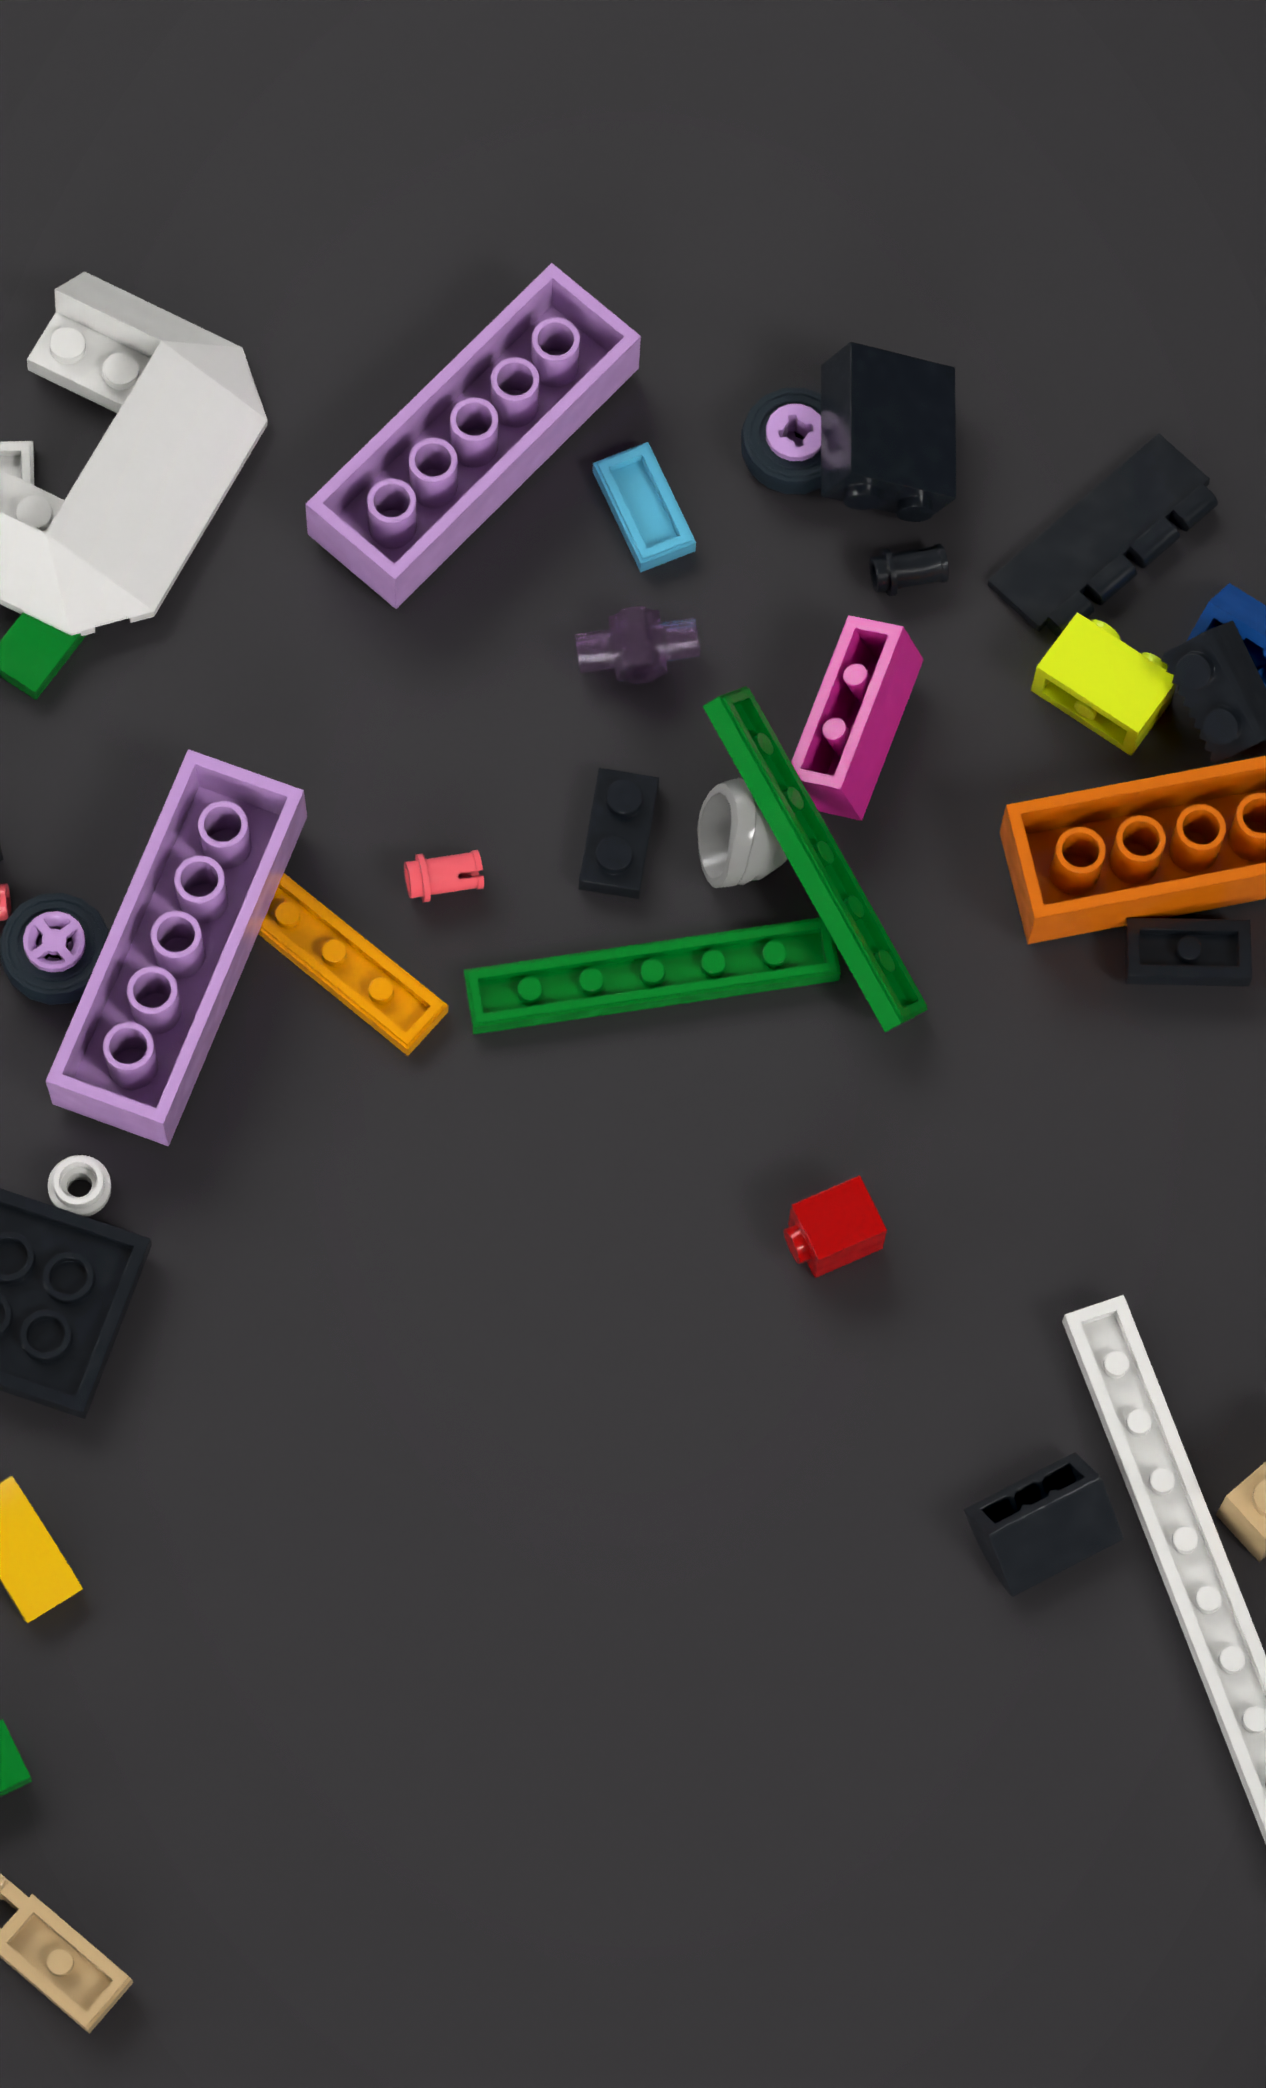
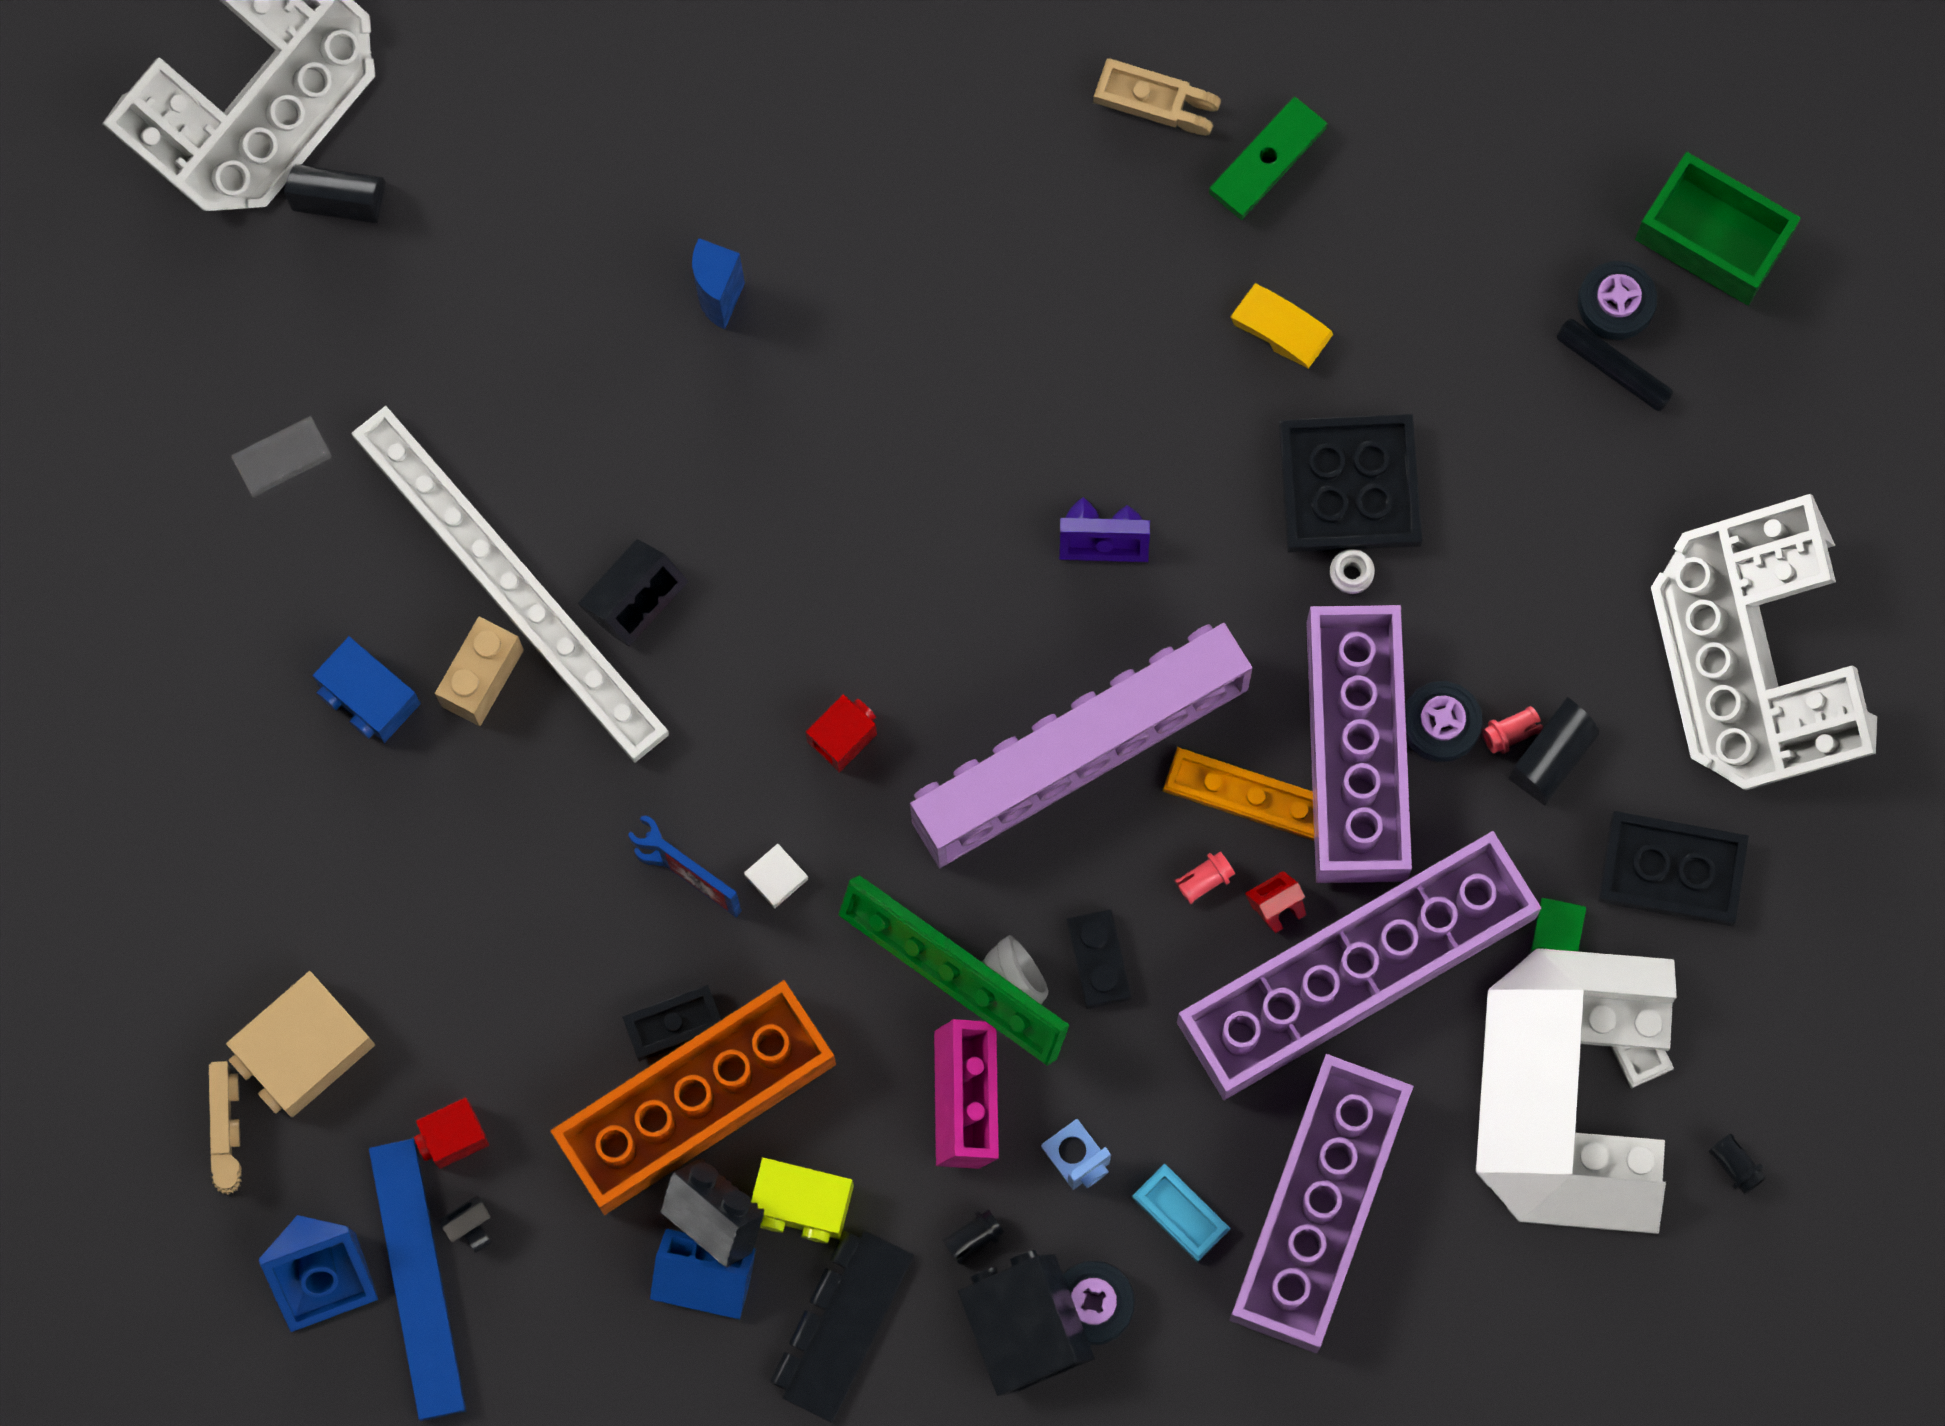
camera: 165 degrees right, 5 degrees up
(303, 683) = (1358, 965): none -> lavender brick
(366, 814) = (1275, 896): none -> red tile
(409, 1366) = (1096, 539): none -> dark purple tile
(536, 1076) = (1080, 744): none -> lavender brick
(637, 645) = (1141, 1097): clear purple axle -> none
(650, 975) = (1042, 862): green tile -> none
(738, 589) = (1090, 1168): none -> light blue bracket
(774, 1897) = (717, 280): none -> blue brick
(989, 1087) = (776, 876): none -> white tile
(1107, 1114) = (684, 867): none -> blue flag

